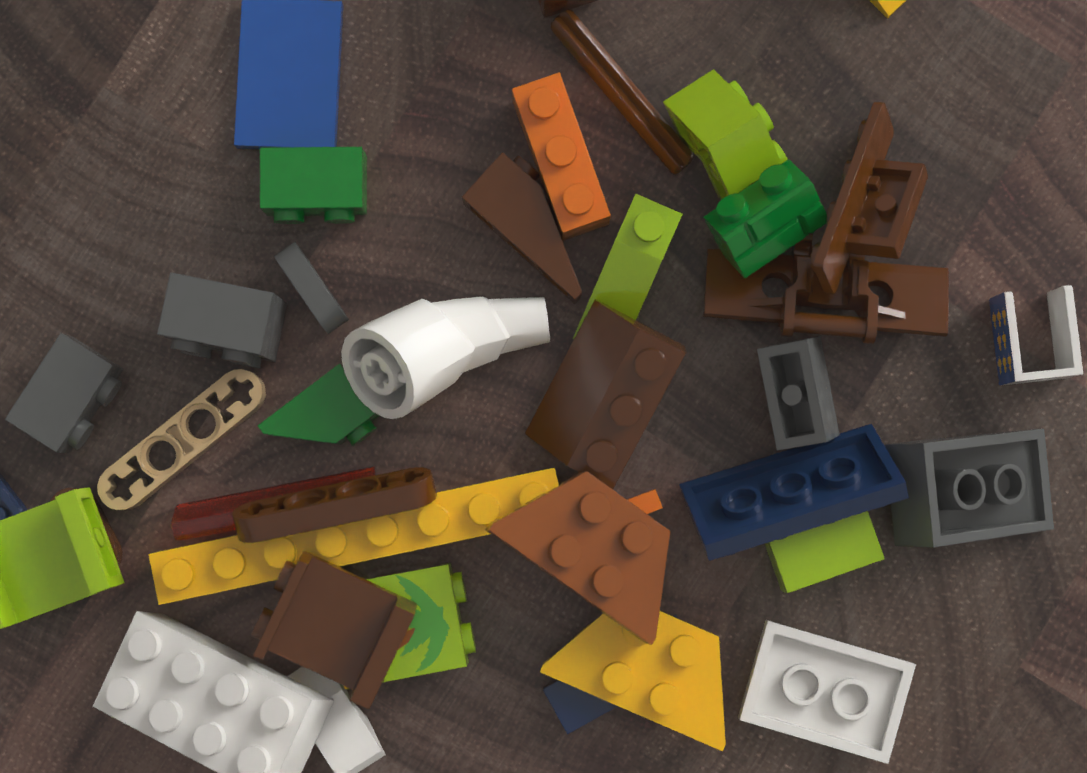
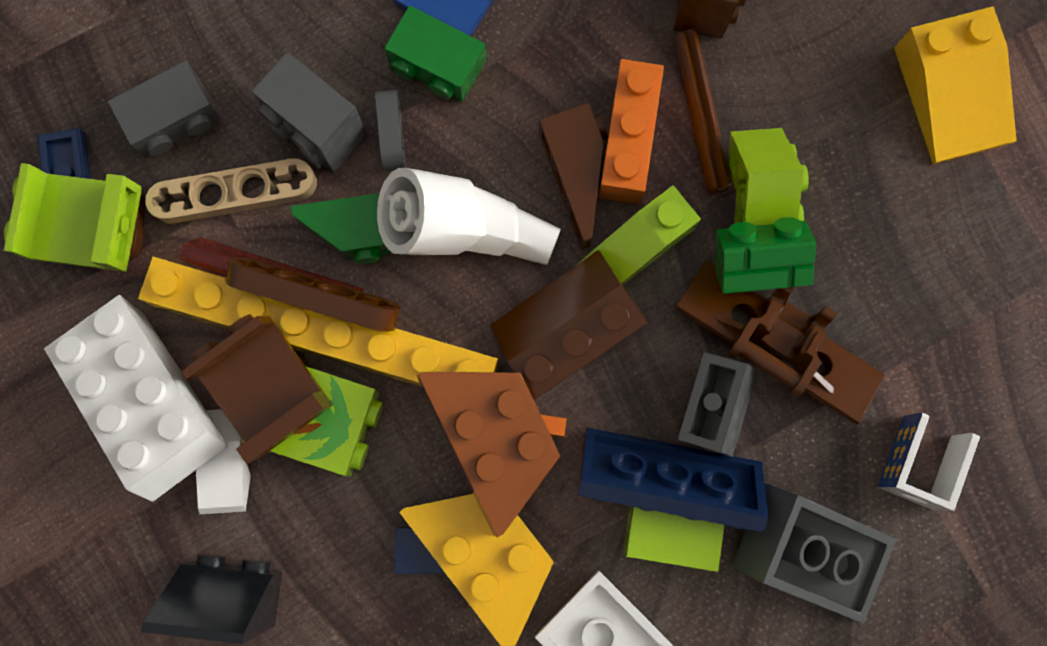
camera: 25 degrees right, 5 degrees down
(873, 203) = (851, 290): reddish brown bracket -> none

